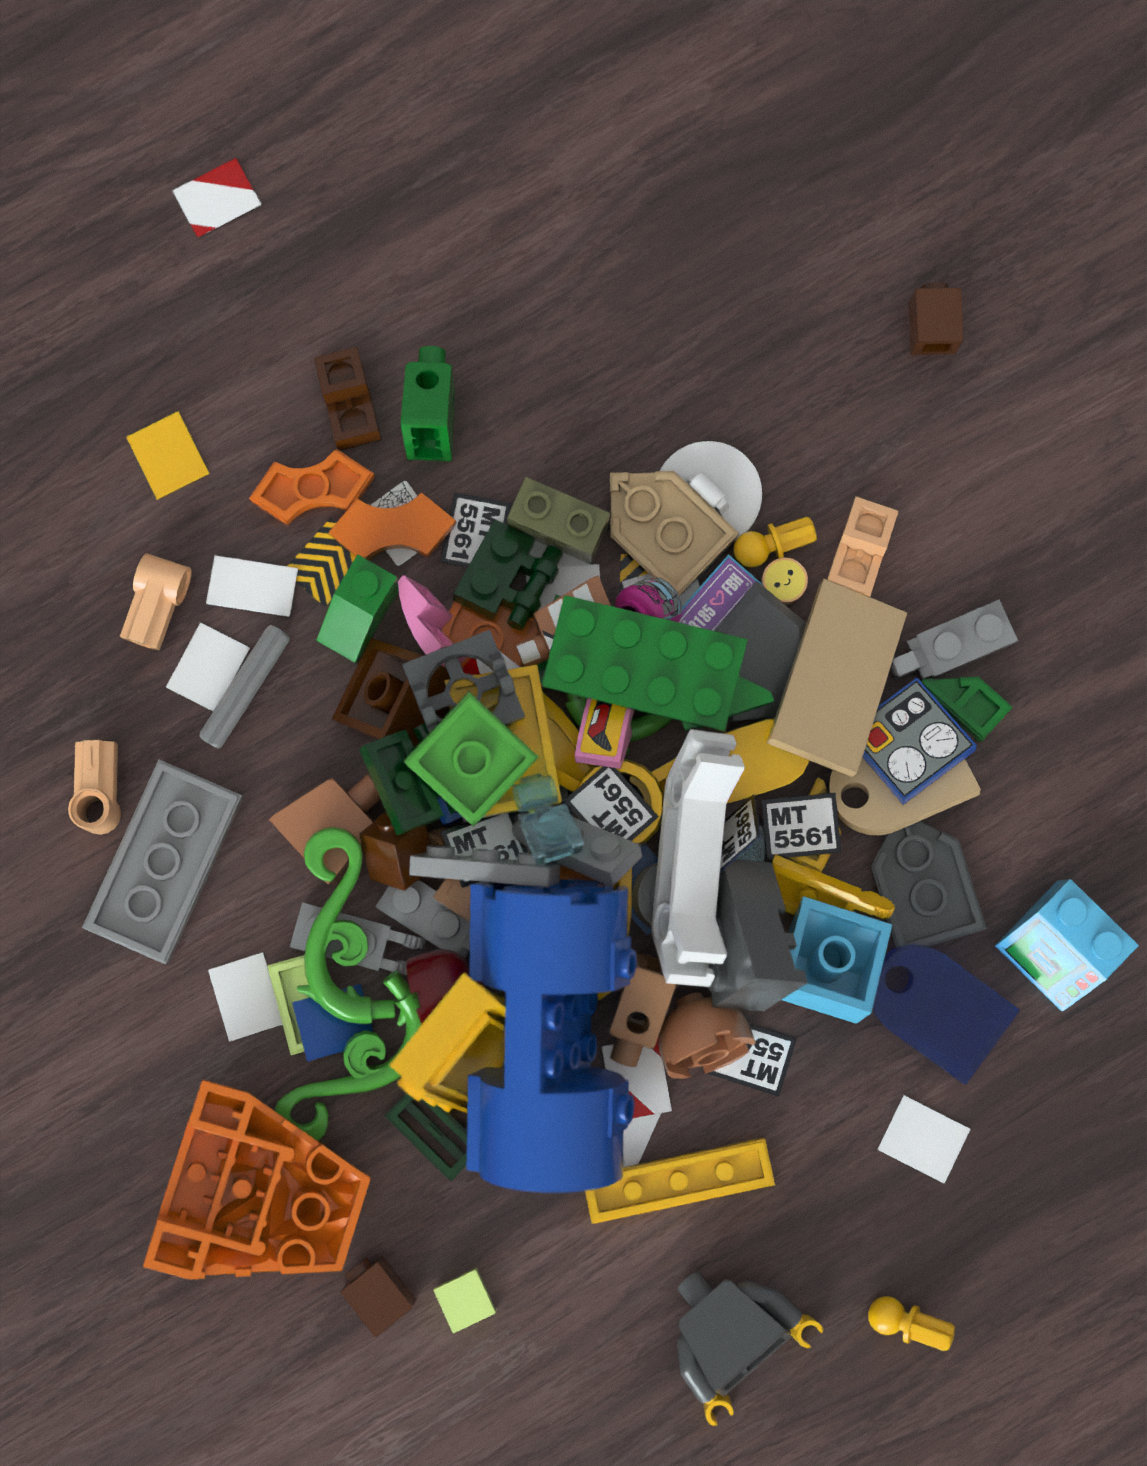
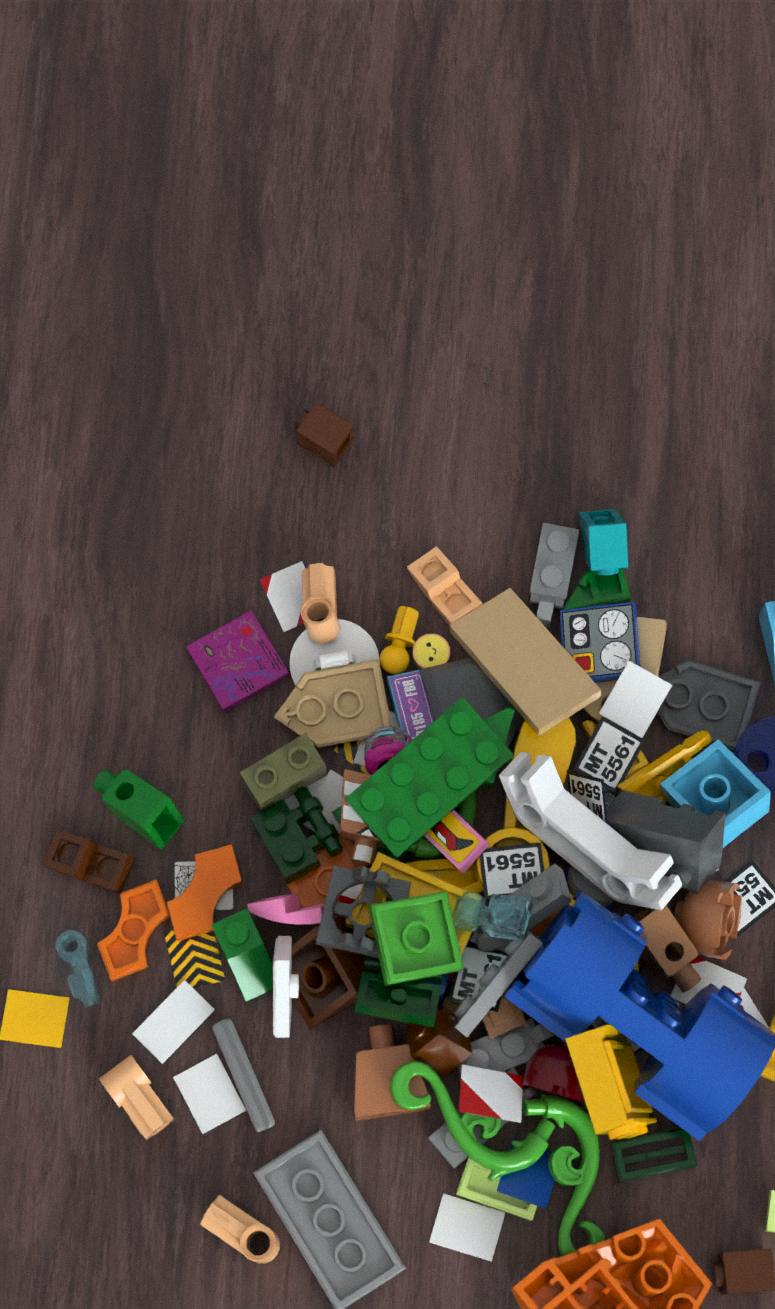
camera: 60 degrees left, 10 degrees down
(230, 473) = (82, 982): none -> clear light blue plate
(342, 663) = (284, 986): none -> white plate
(379, 934) = (491, 1093): none -> white sticker
(473, 521) = (246, 843): sticker -> none
(643, 399) = (237, 661): none -> magenta tile
(748, 407) = (286, 595): none -> white sticker
(756, 436) = (319, 603): none -> light nougat piece
(875, 814) = (635, 699): none -> white sticker
(1022, 672) = (604, 541): none -> teal slope

